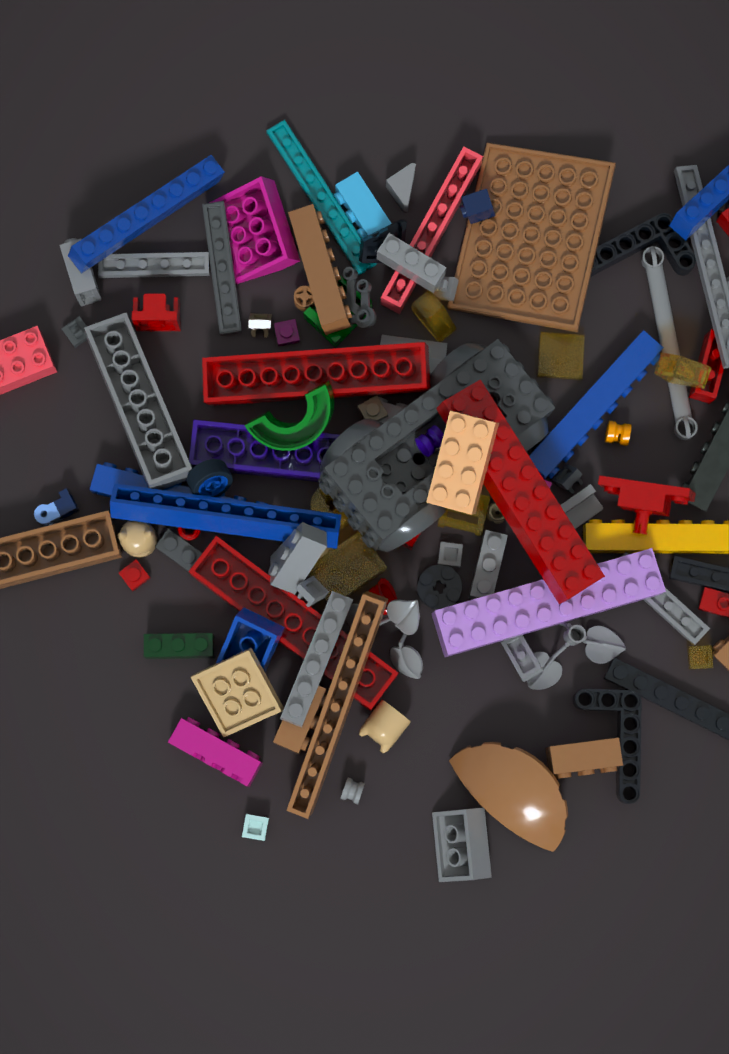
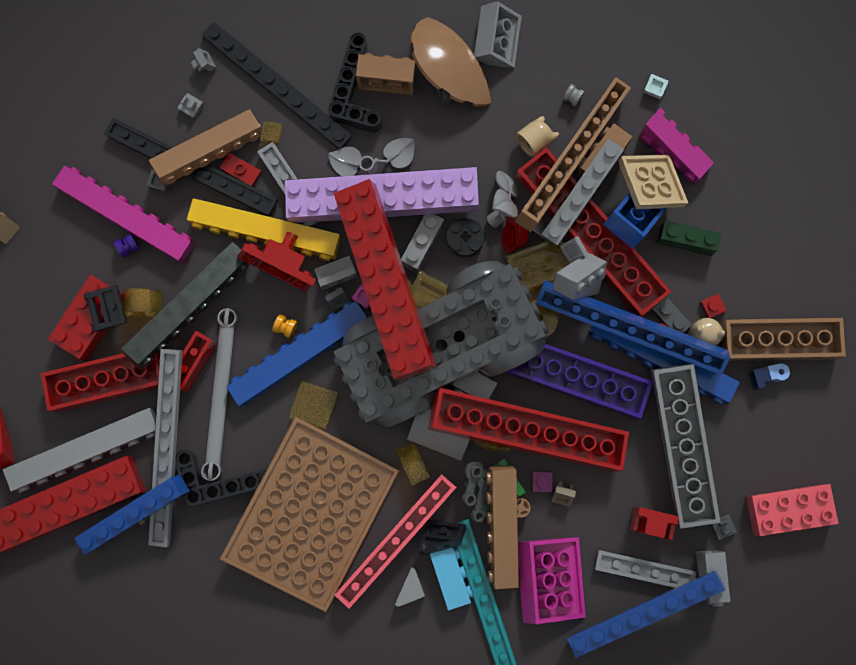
camera: 160 degrees left, 0 degrees up
(210, 478) = (639, 361): black wheel -> none
(222, 268) = (586, 553): dark grey tile -> none
(299, 434) = (562, 379): green brick -> none
(373, 409) = (487, 389): dark tan plate -> none
(411, 263) = (423, 508): light grey brick -> none
(430, 441) = (444, 348): dark purple wheel -> none
(447, 289) = (397, 487): light grey tile -> none
(450, 554) = (449, 261): light grey tile -> none
(462, 462) = (428, 305): light nougat brick -> none
(477, 206) = (350, 551): dark blue brick -> none
(522, 657) = (412, 158): light grey plate -> none
(682, 371) = (216, 359): clear yellow slope -> none

